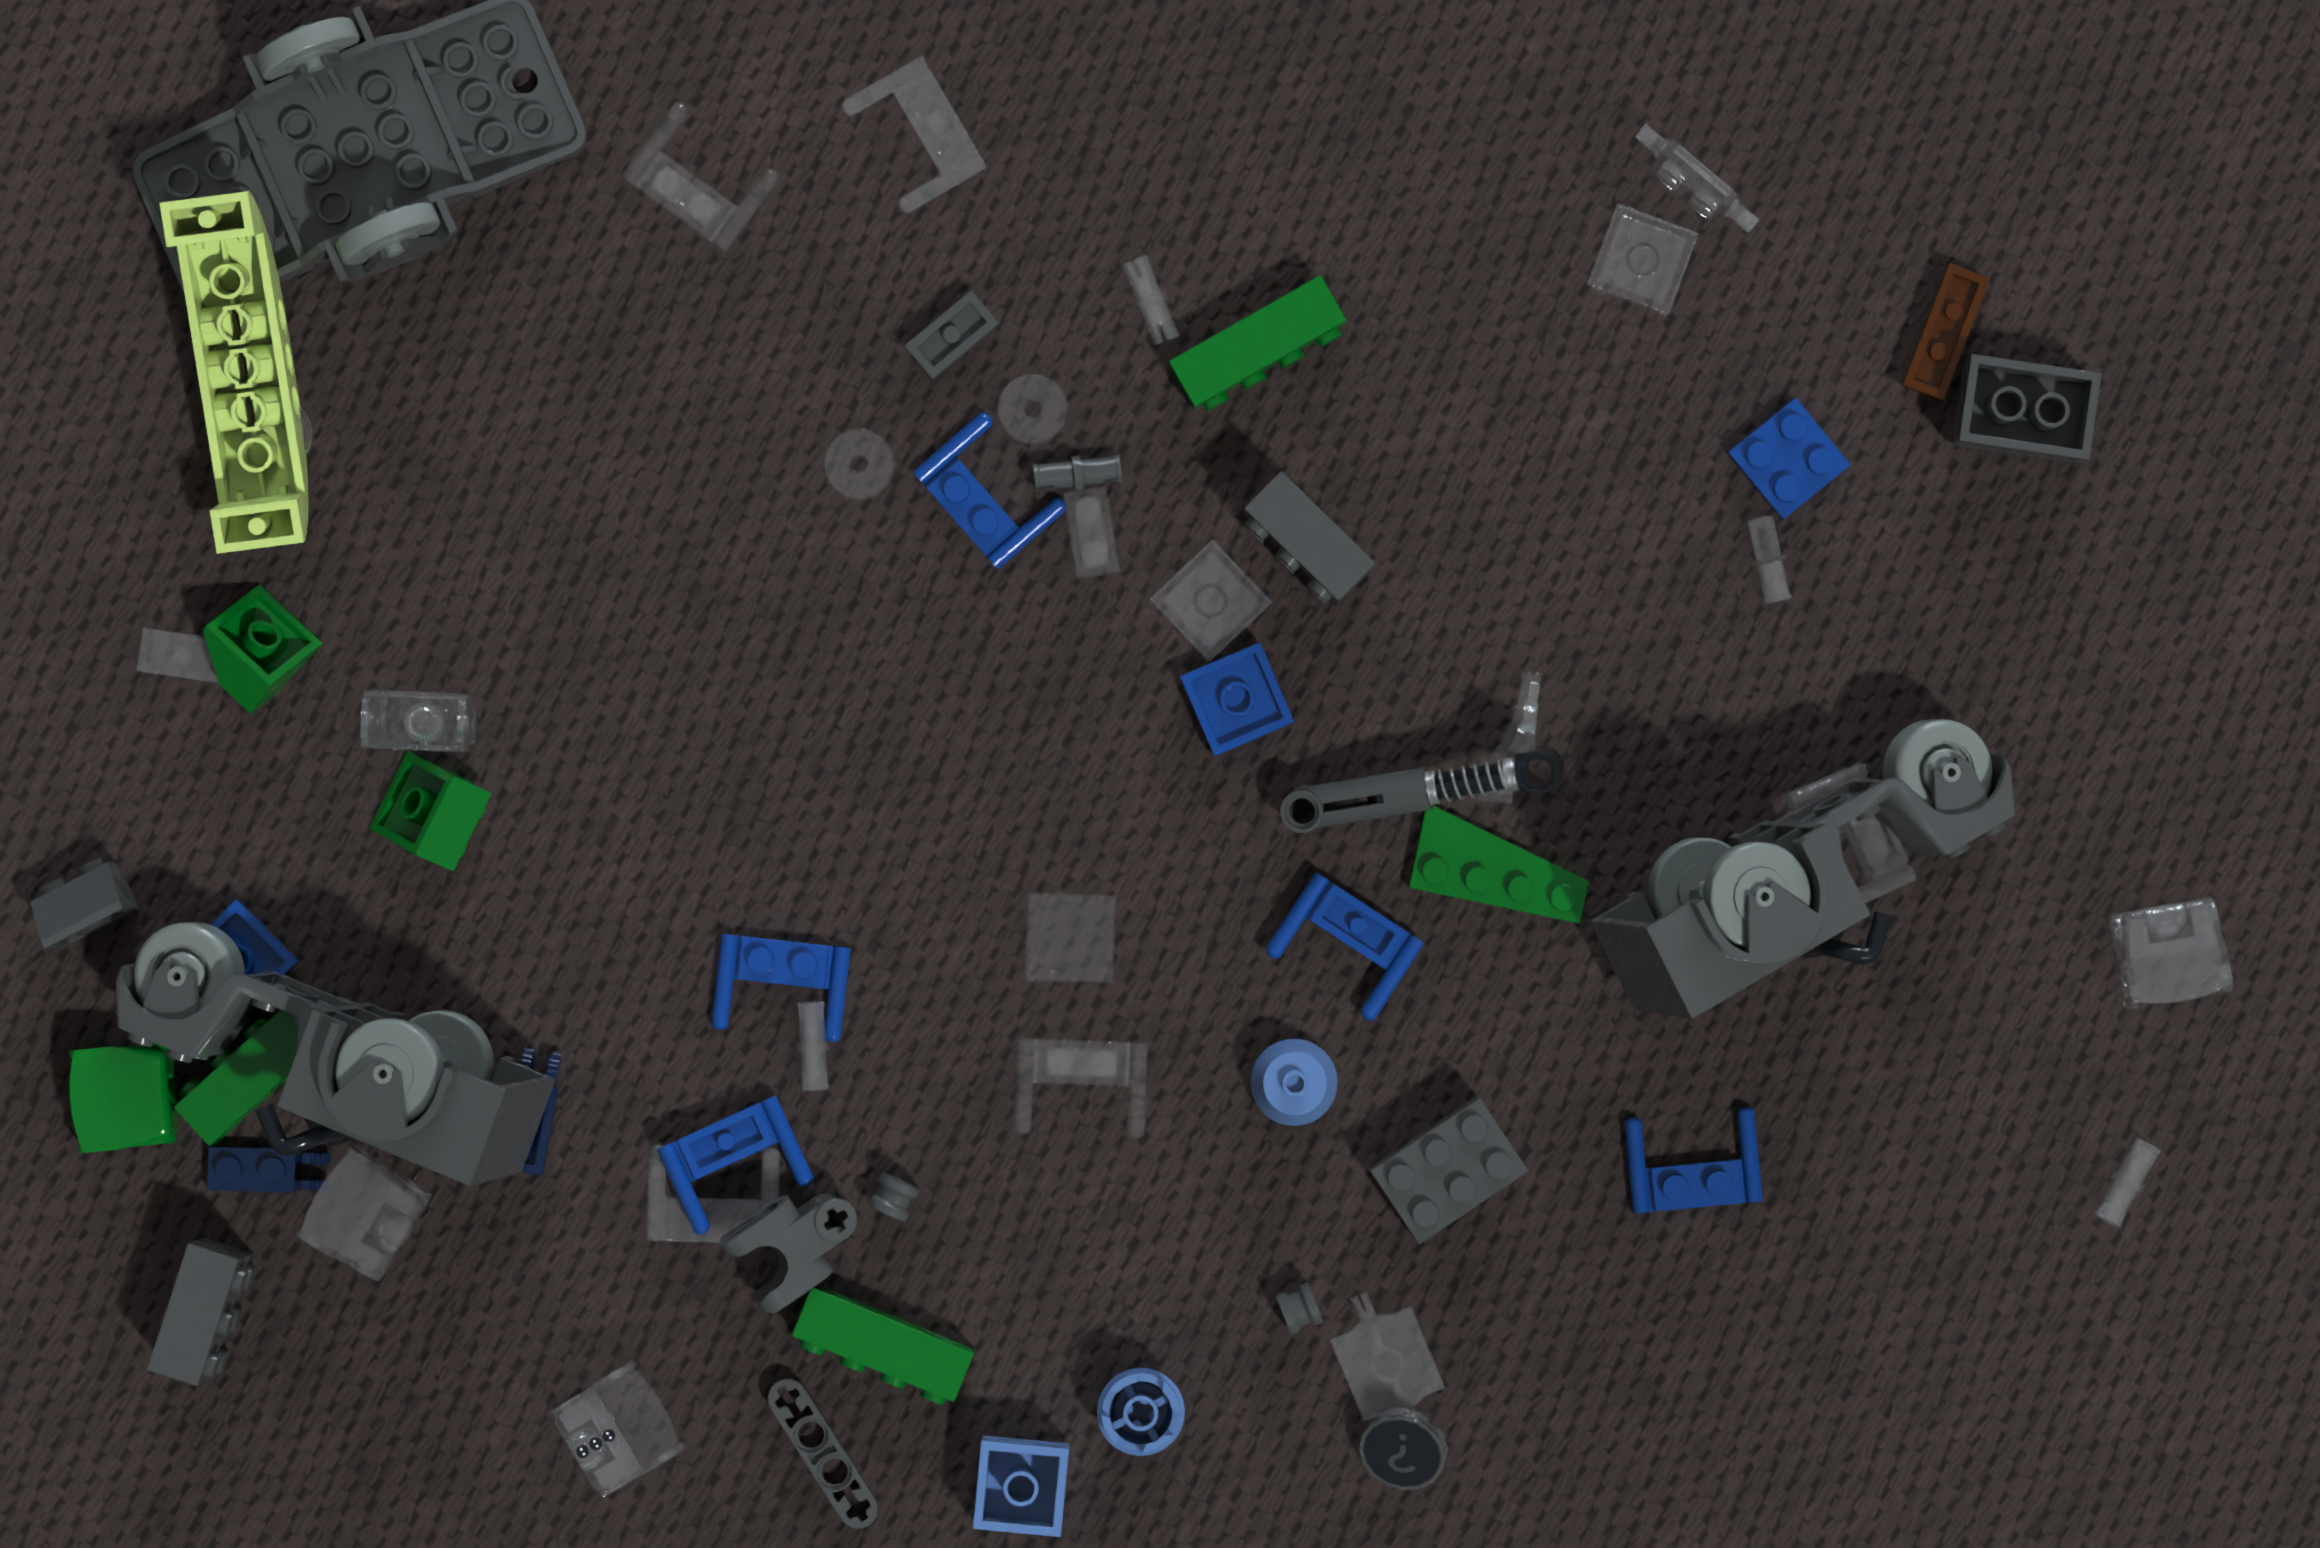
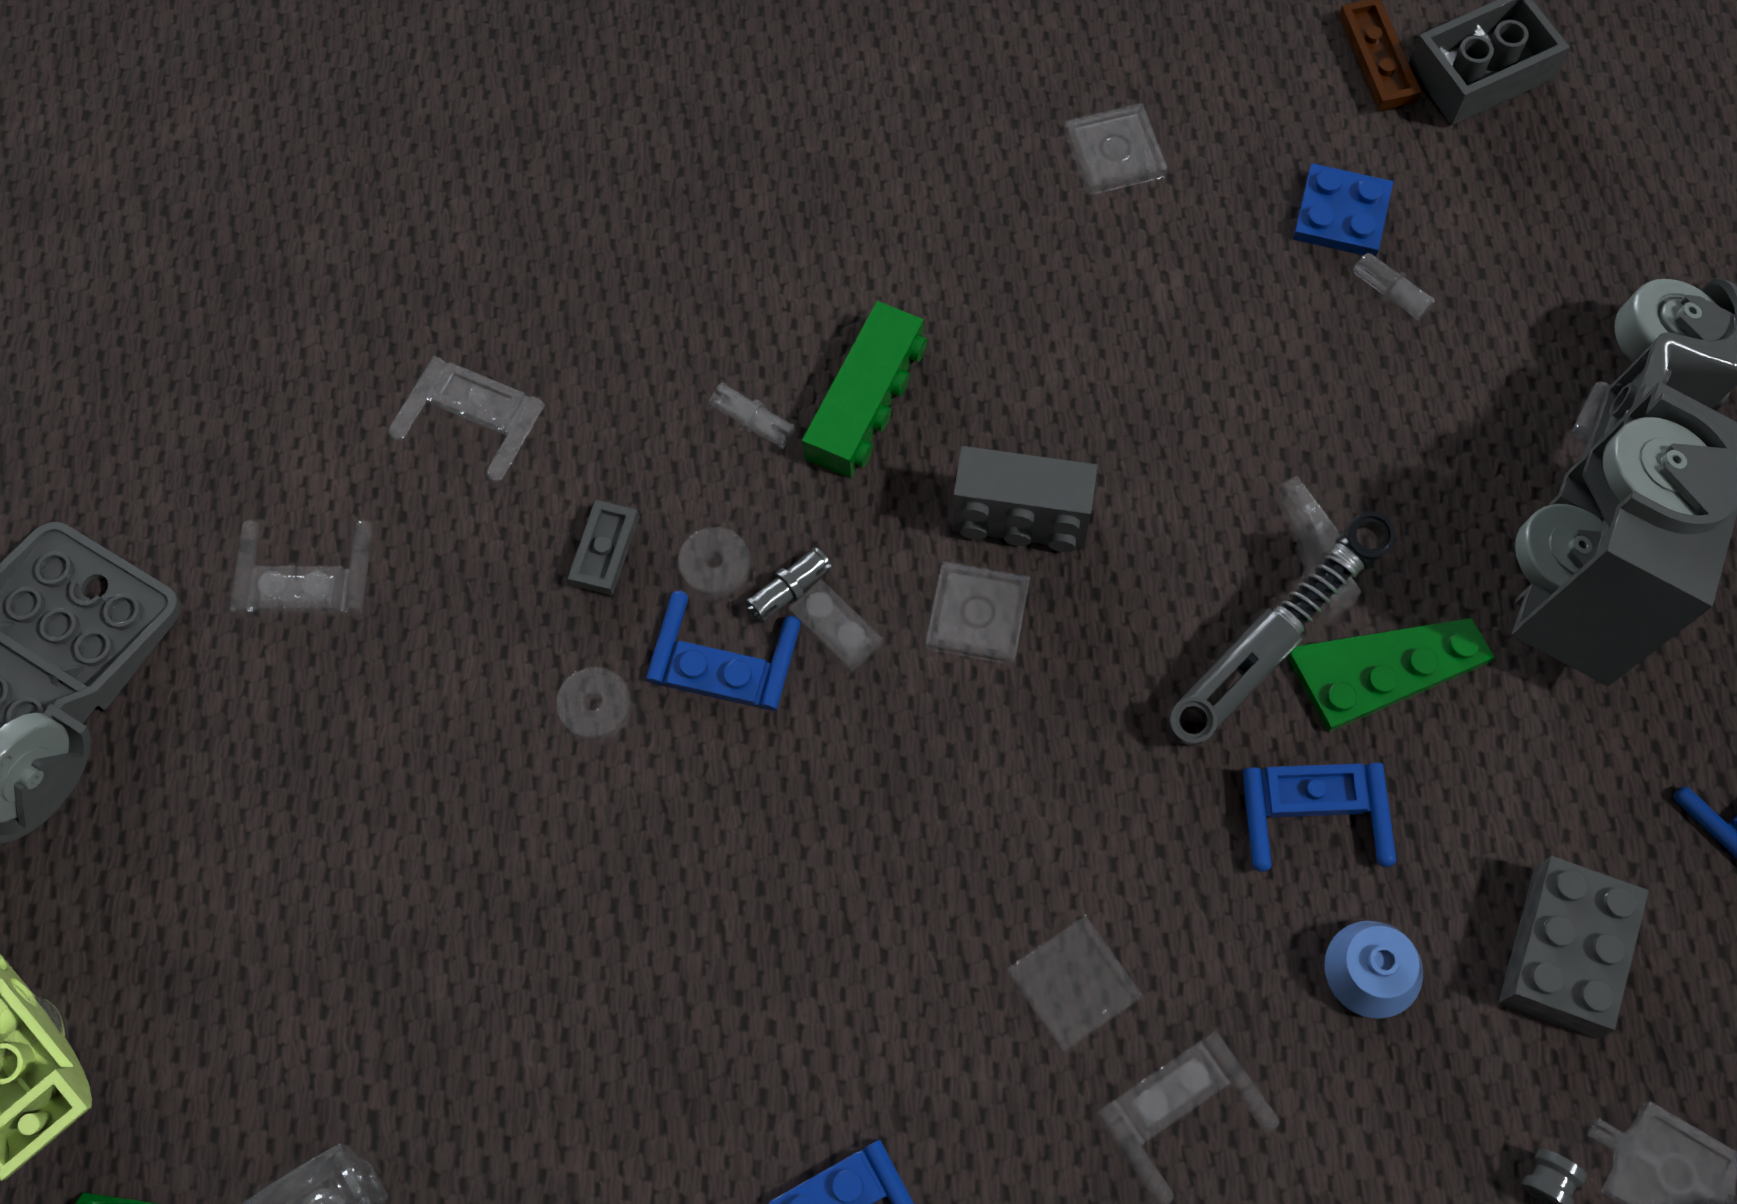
camera: 35 degrees left, 20 degrees down
(1237, 699) = (1062, 674): blue plate -> none
(1683, 170) = (1112, 58): clear plate -> none

